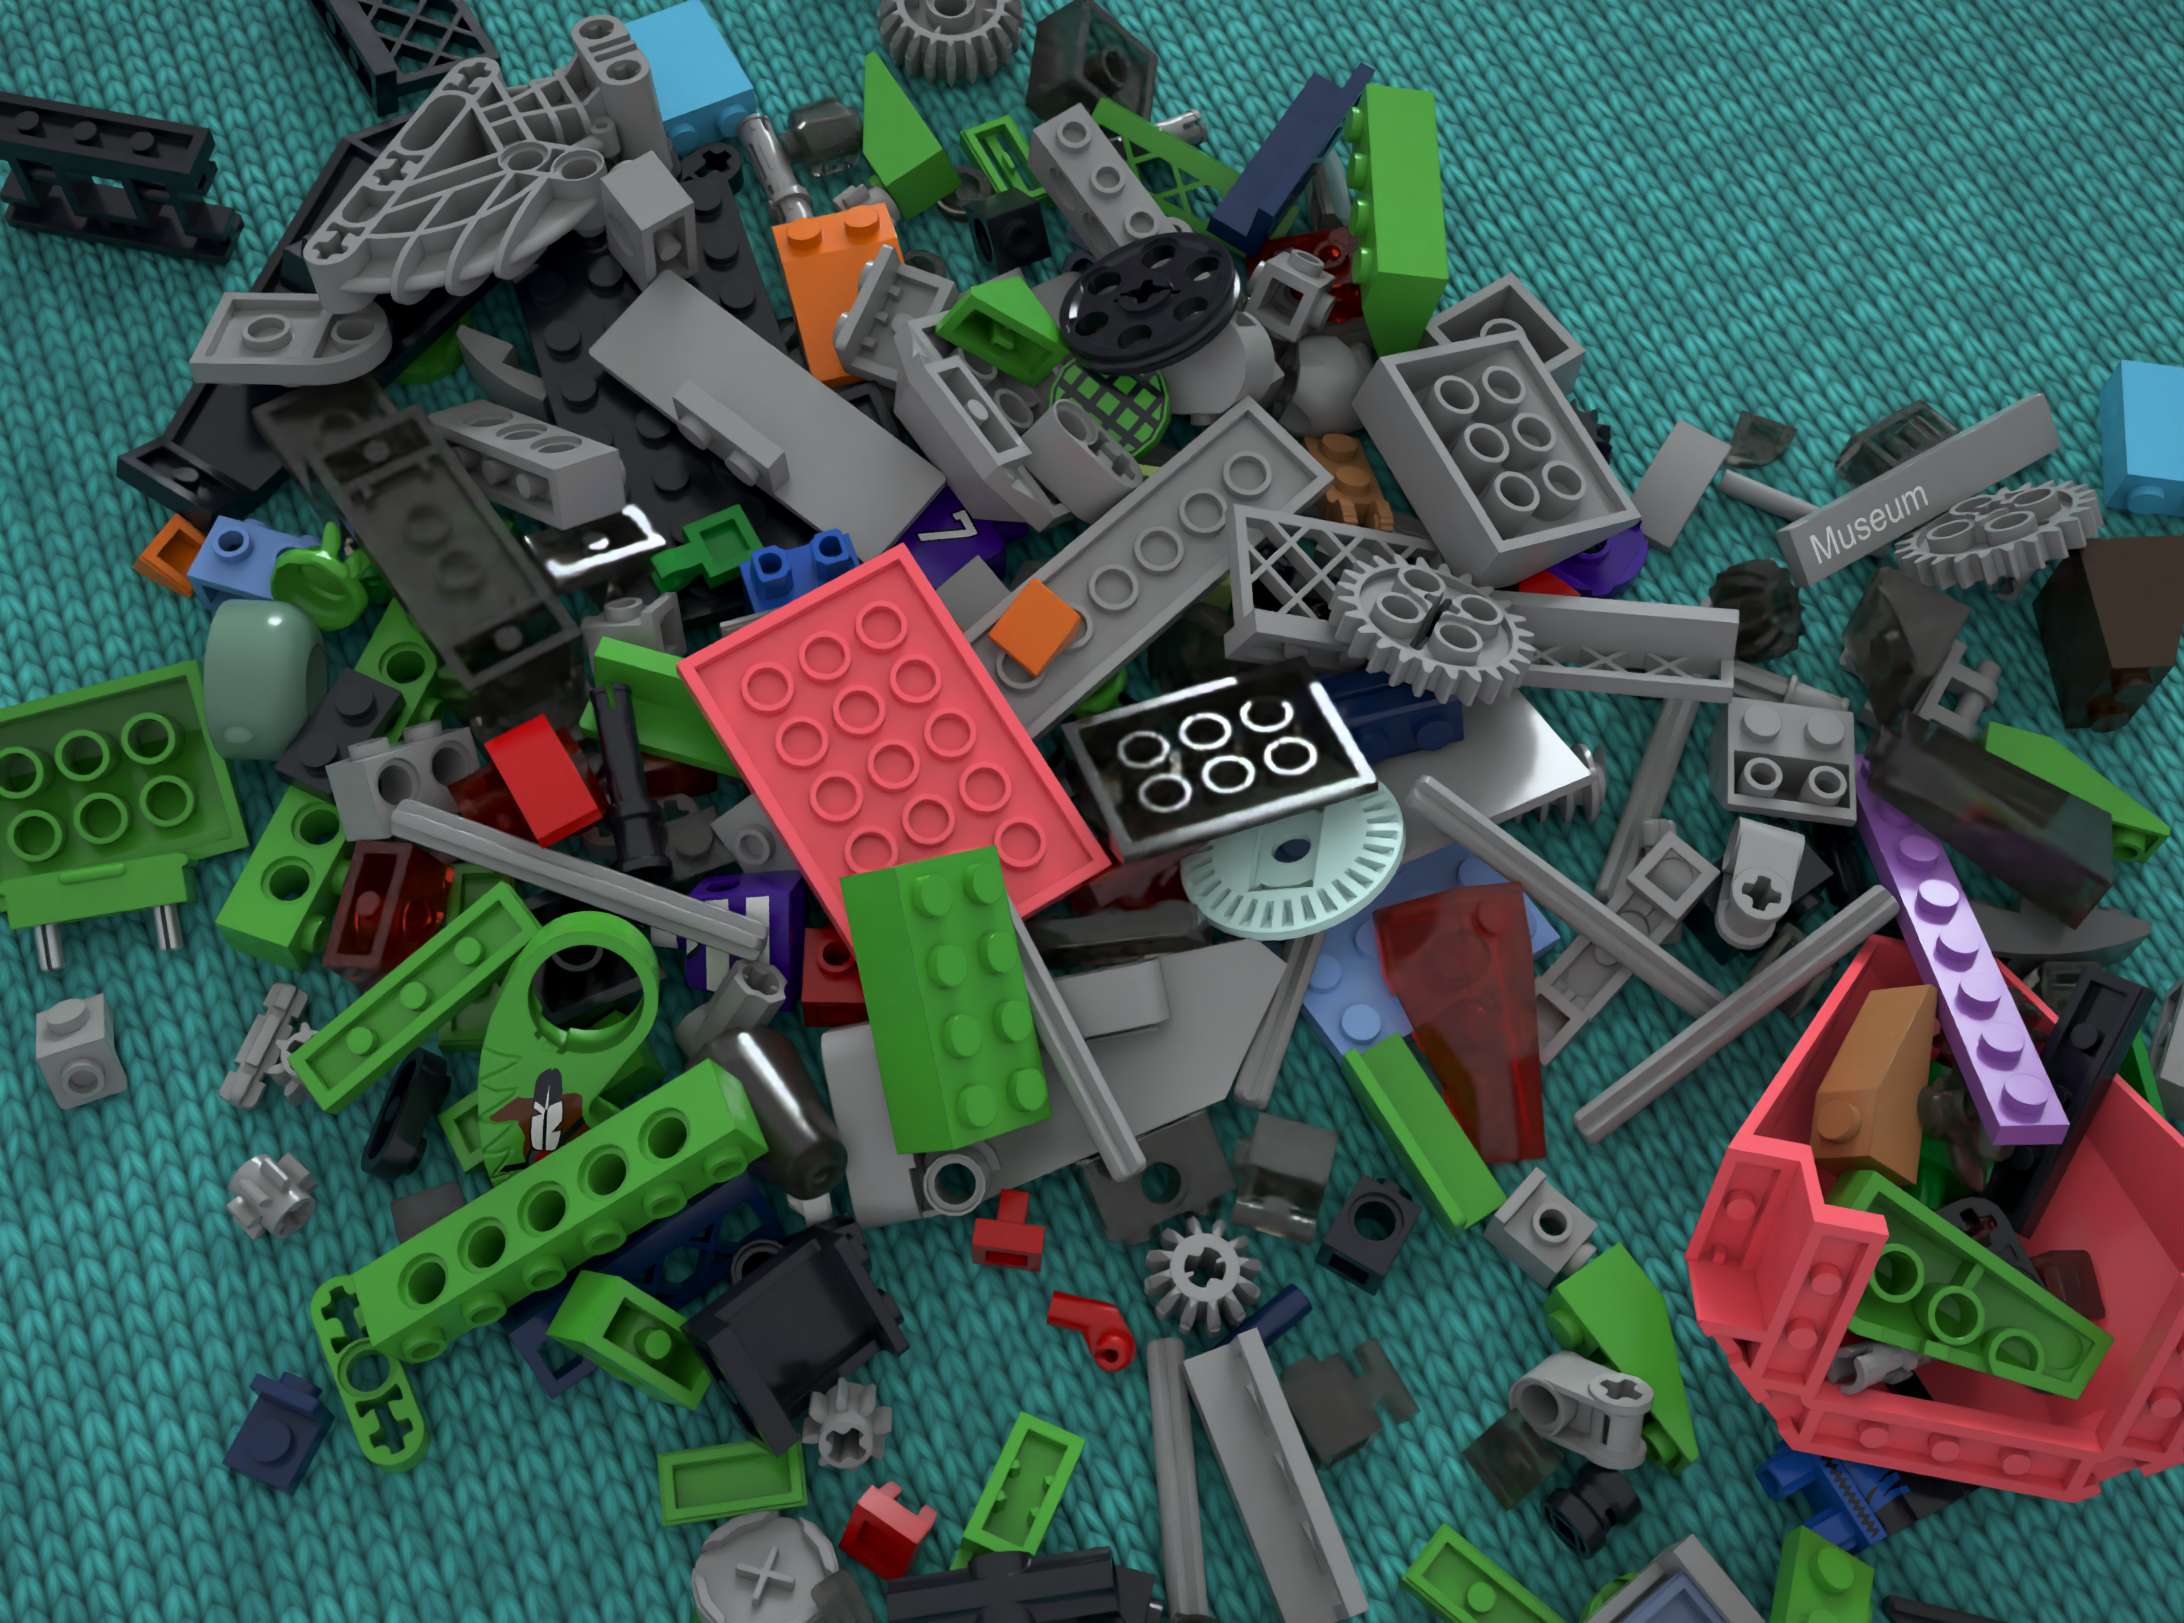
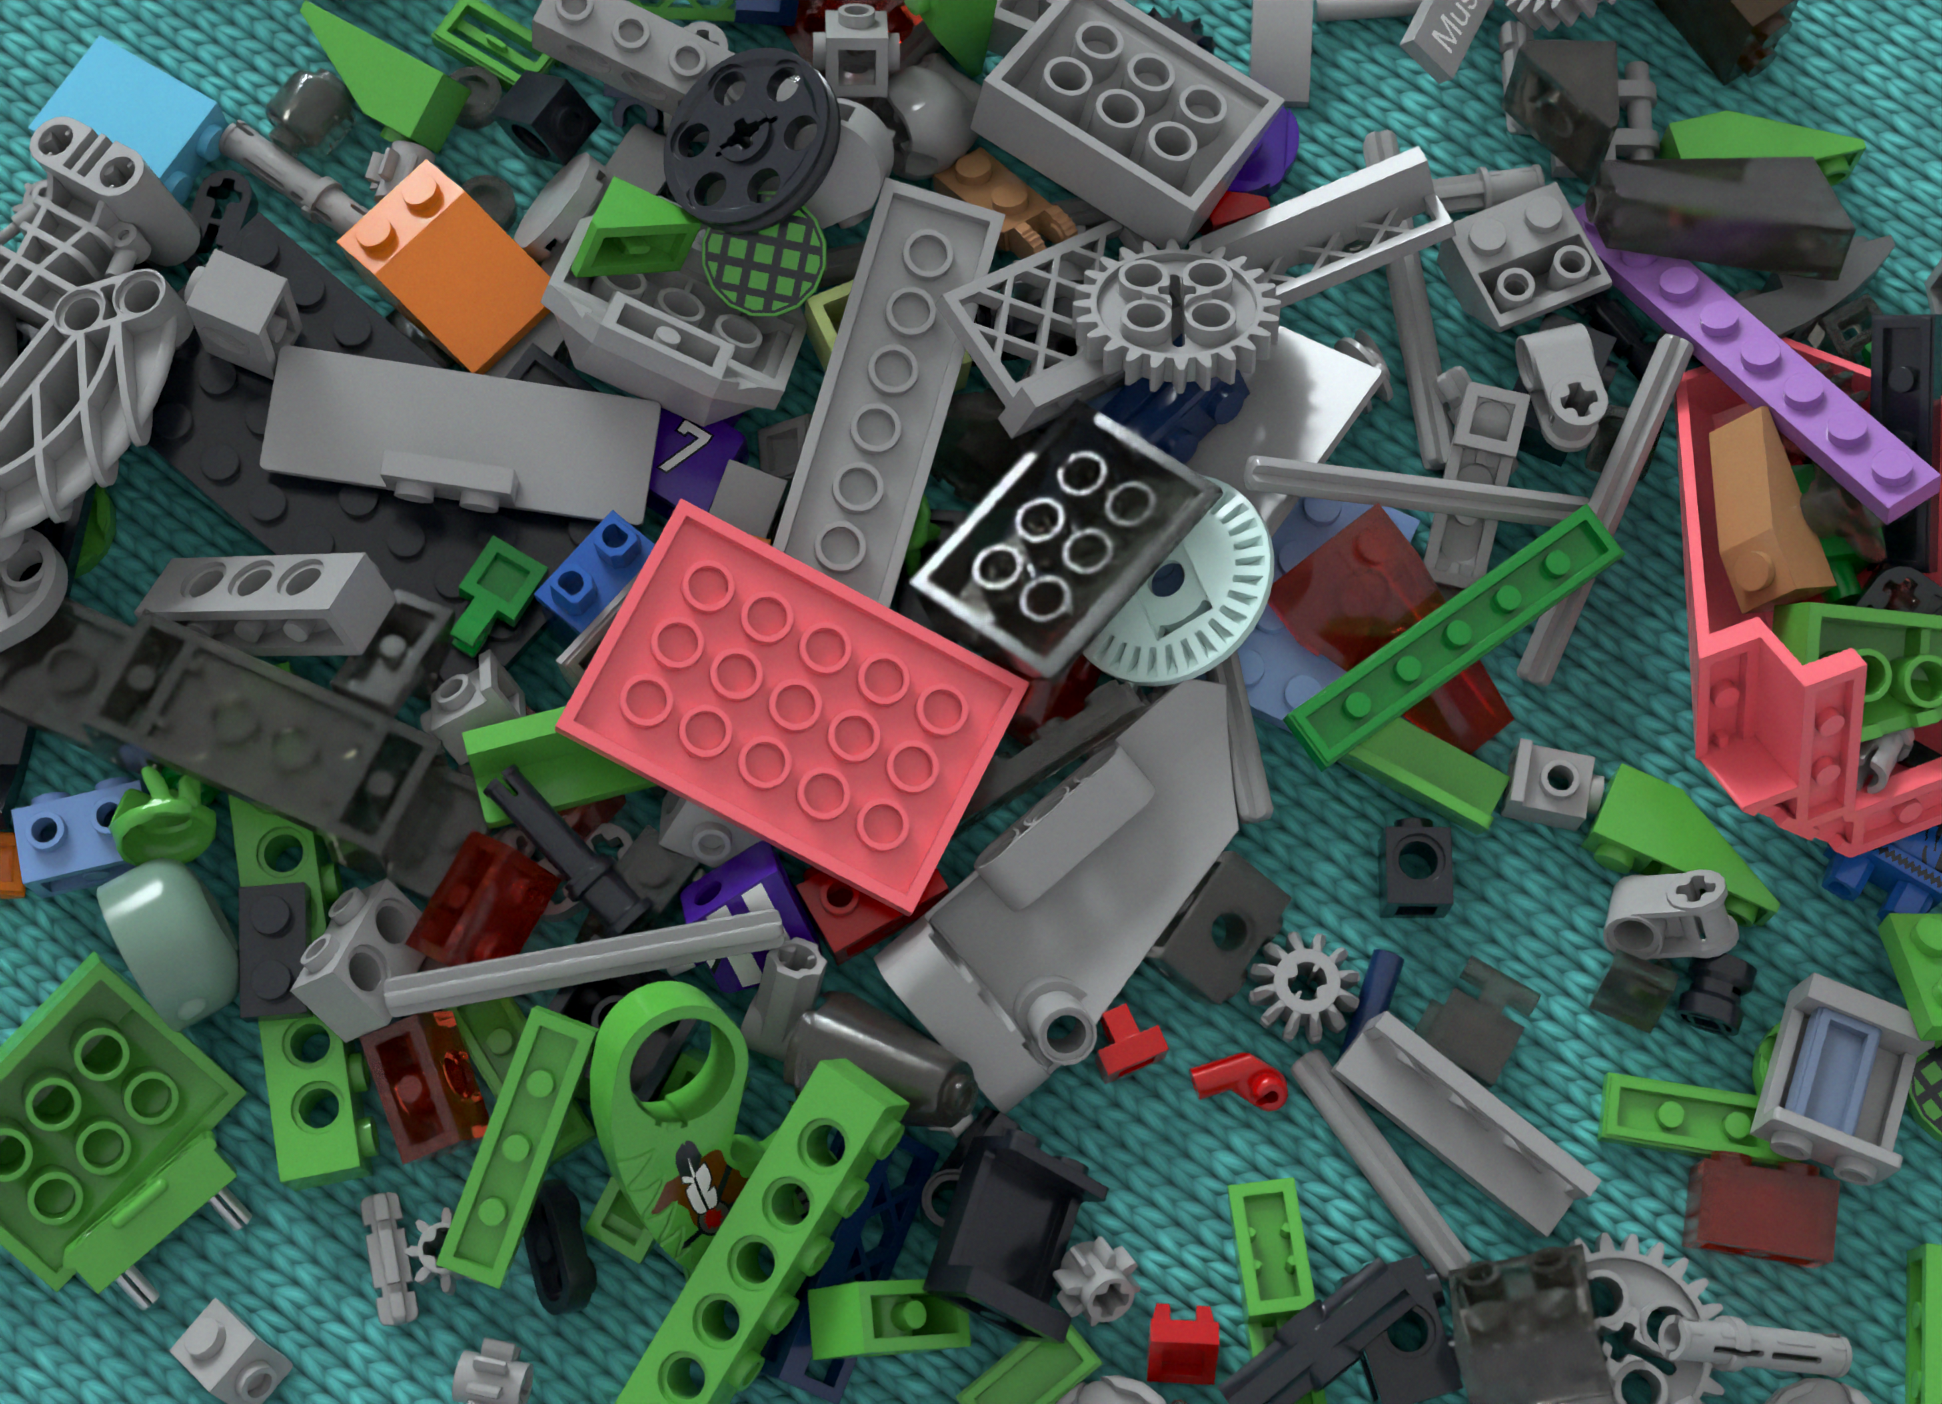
camera: 25 degrees left, 10 degrees up
(425, 1208) = (639, 1317): clear smoke slope -> none
(498, 373) = (162, 521): light grey slope -> none
(543, 781) = (499, 894): red slope -> none
(886, 300) = (514, 267): light grey bracket -> none
(946, 1000) = (976, 888): bright green brick -> none
(1035, 628) = (836, 507): orange slope -> none
(1076, 1063) = (1071, 853): light grey axle -> none
(1080, 461) = (775, 324): light grey beam -> none
(1282, 1177) = (1321, 867): clear smoke brick -> none
(1523, 1039) = (1453, 637): none -> green tile
(1766, 606) = (1424, 116): clear smoke gear -> none

